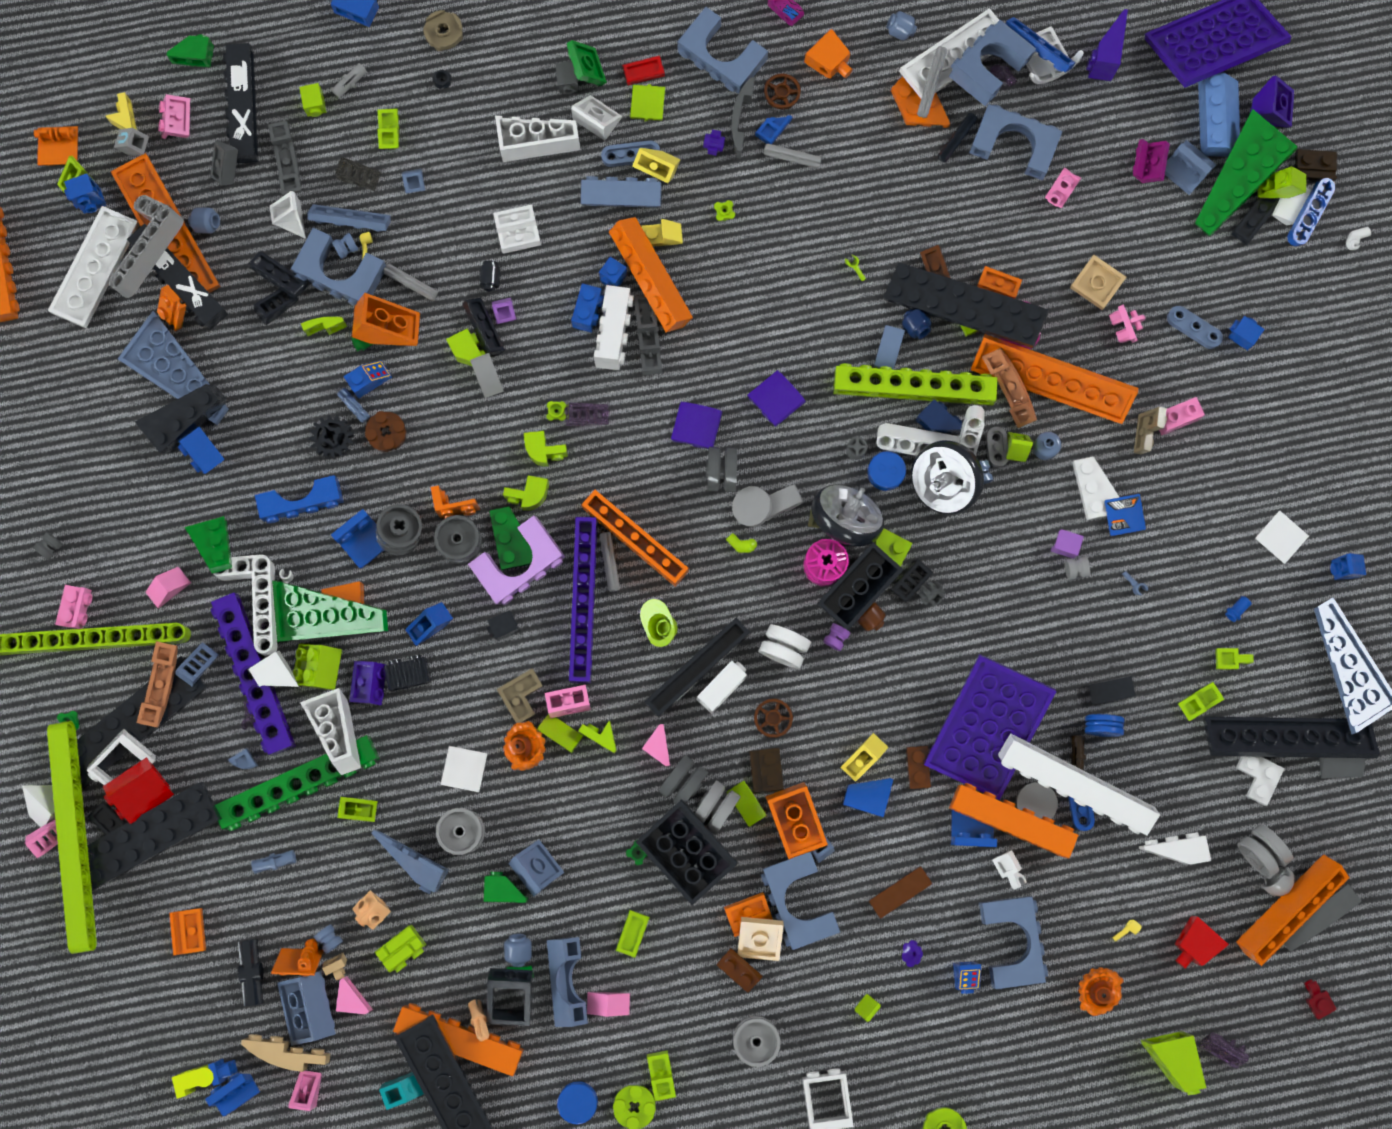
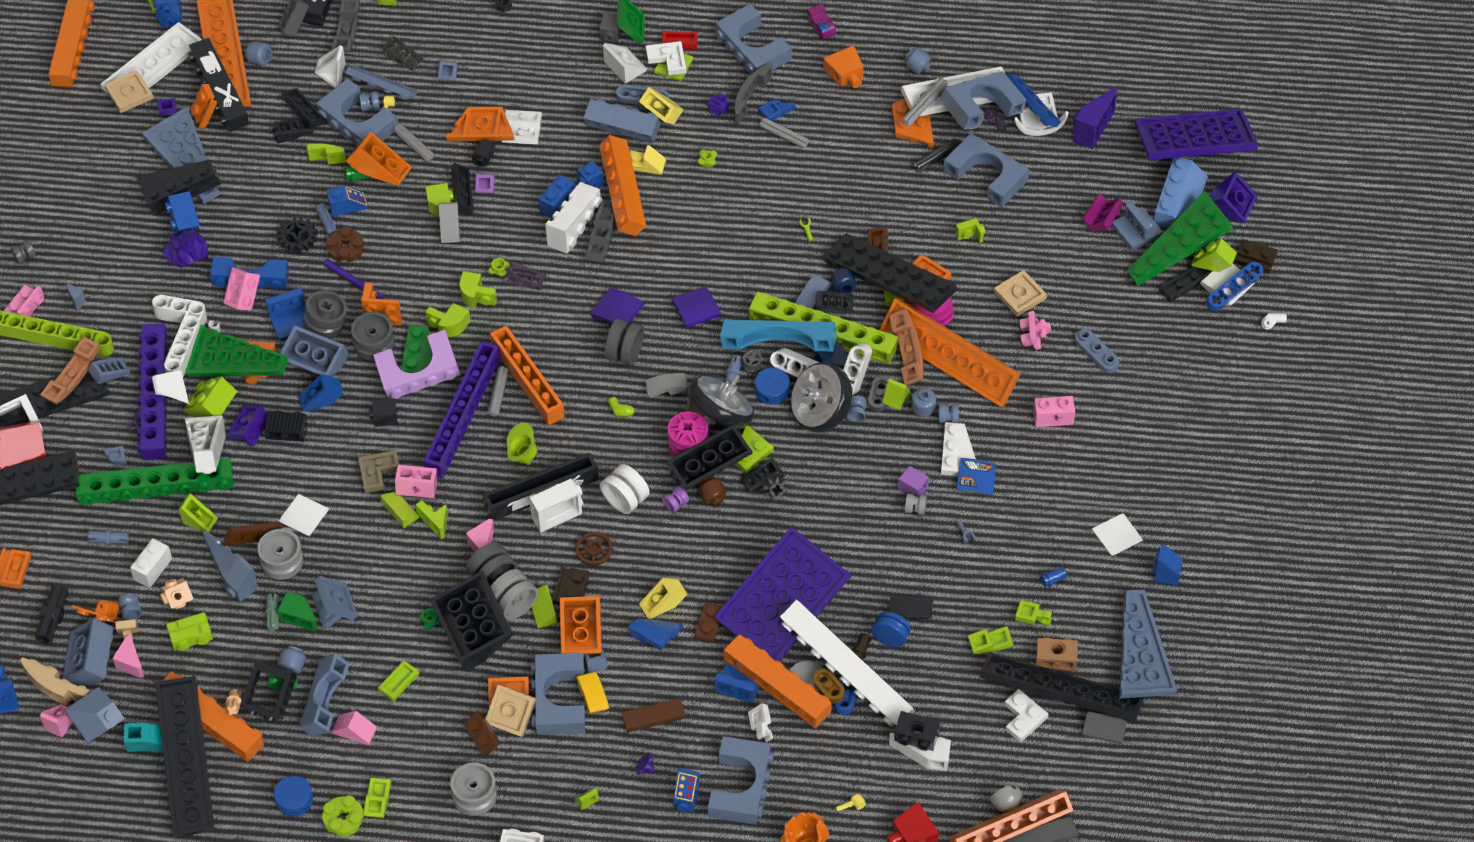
camera: 20 degrees right, 25 degrees down
(83, 314) = (128, 91): none -> tan plate
(127, 584) = (76, 295): none -> sand blue slope
(131, 318) = (167, 106): none -> dark purple slope
(149, 247) = (222, 38): light grey beam -> none
(167, 586) = (108, 308): bright pink slope -> none
(212, 543) = (162, 283): green wing -> none
(221, 492) = (185, 248): none -> dark purple hair
(299, 525) = (241, 289): none -> bright pink bracket
(330, 882) = (151, 563): none -> white brick
(343, 1079) = (94, 714): none -> sand blue slope
(388, 128) = (442, 28): lime slope -> none
(404, 581) = (314, 352): none -> sand blue slope
(410, 471) = (349, 277): none -> dark purple bar
(424, 820) = (249, 533): none -> reddish brown tile
(476, 241) = (482, 124): none -> orange wing
(476, 898) = (272, 612): none -> sand green axle
(529, 744) = (364, 505): orange hair -> none
(535, 137) = (565, 63): white wedge -> none
(641, 92) = (670, 53): none -> white plate
(752, 506) = (640, 380): light grey tile -> none
(782, 91) = (794, 84): reddish brown wheel -> none
(832, 888) = (593, 692): none -> yellow slope
(835, 420) = (742, 333): none -> dark azure arch
(841, 466) = (734, 368): none -> sand blue pin
(902, 356) = (820, 300): none -> black slope
(1023, 220) = (970, 228): none -> lime bracket
(1062, 188) = (1014, 212): bright pink hips -> none
(1065, 812) = (830, 687): none -> pearl gold plate
(1074, 450) = (948, 413): none -> sand blue wheel
(1147, 424) = (1022, 411): dark tan plate -> none
(1161, 843) = (911, 722): none -> black brick
(1245, 332) = (1140, 364): blue brick -> none
(1265, 851) = (1001, 766): light grey wheel -> none
(1284, 698) = (1064, 661): none -> medium nougat brick

